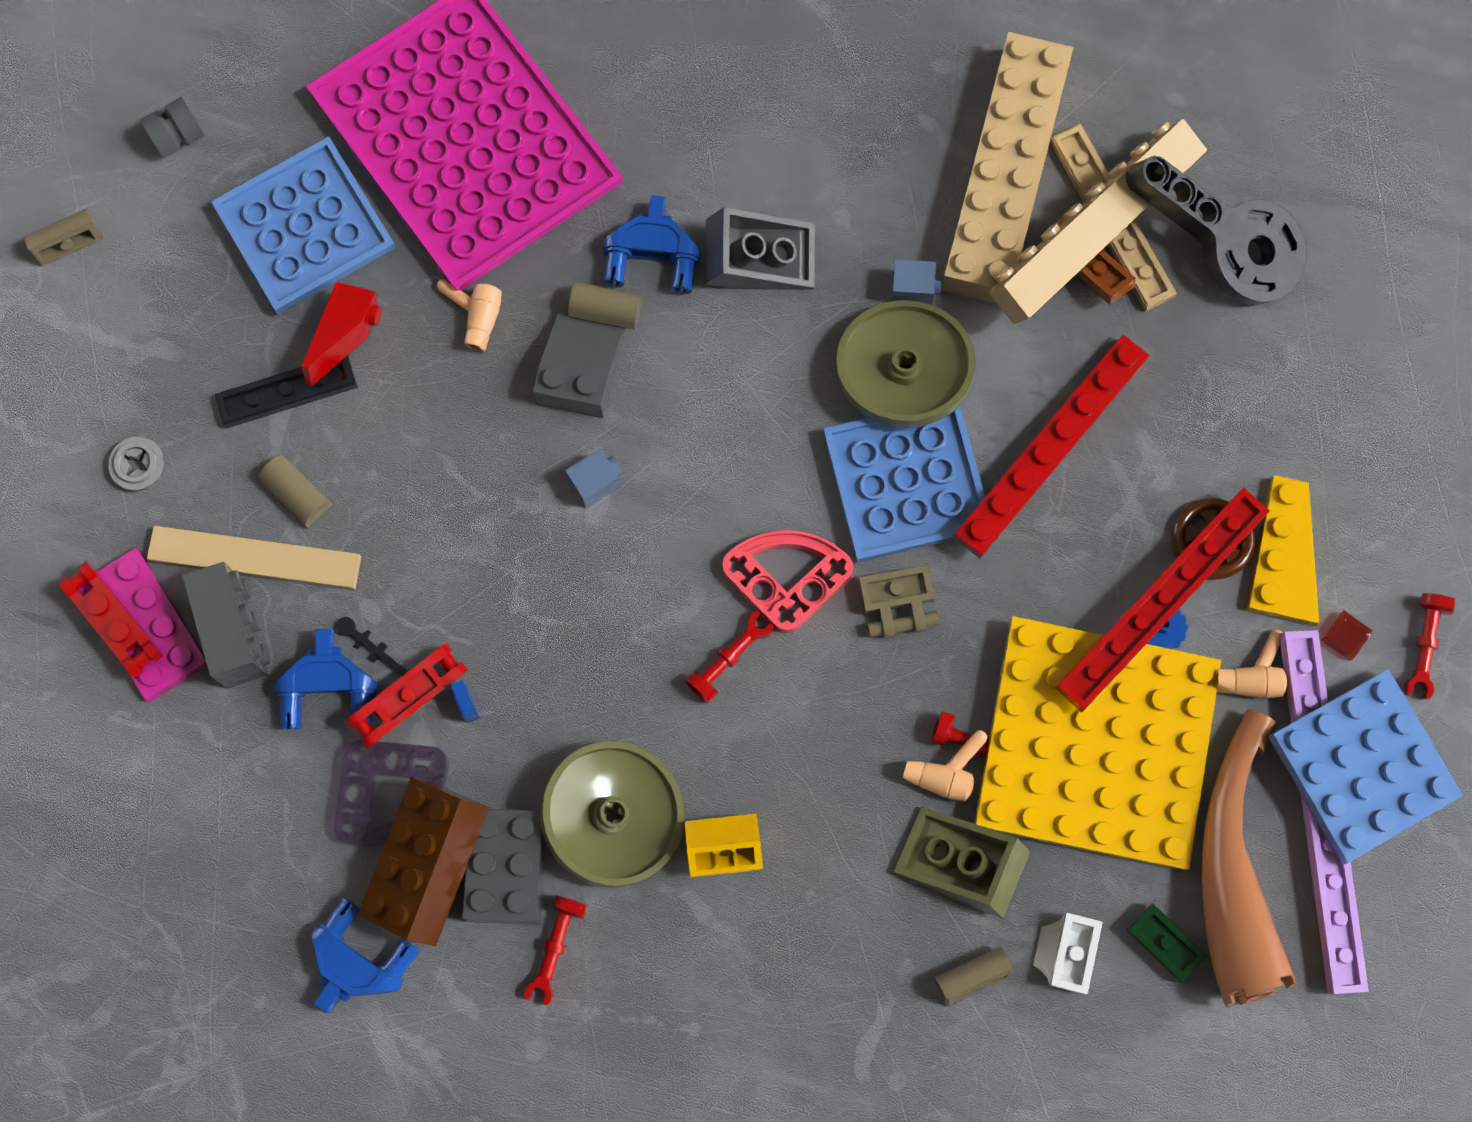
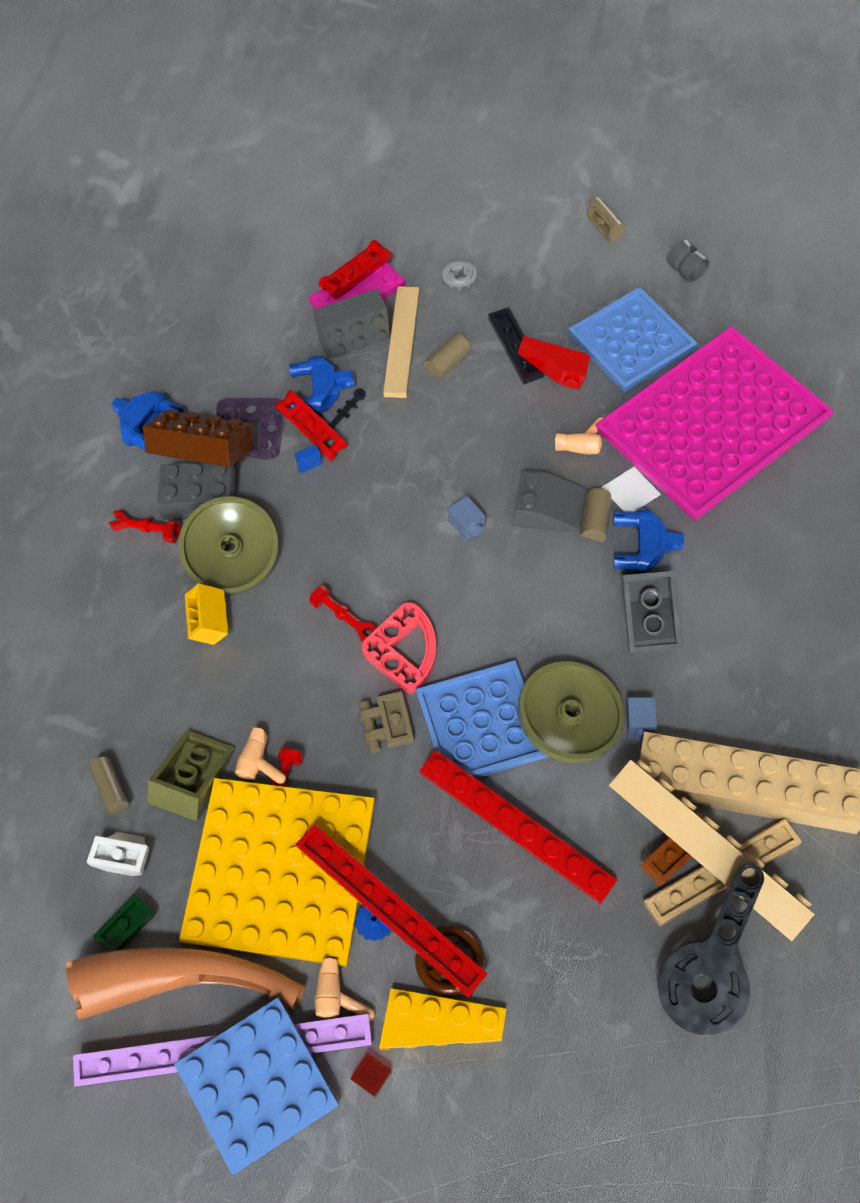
camera: 90 degrees right, 15 degrees down
(562, 259) = (631, 490): none -> white sticker
(1427, 642) = (365, 1146): red piece -> none

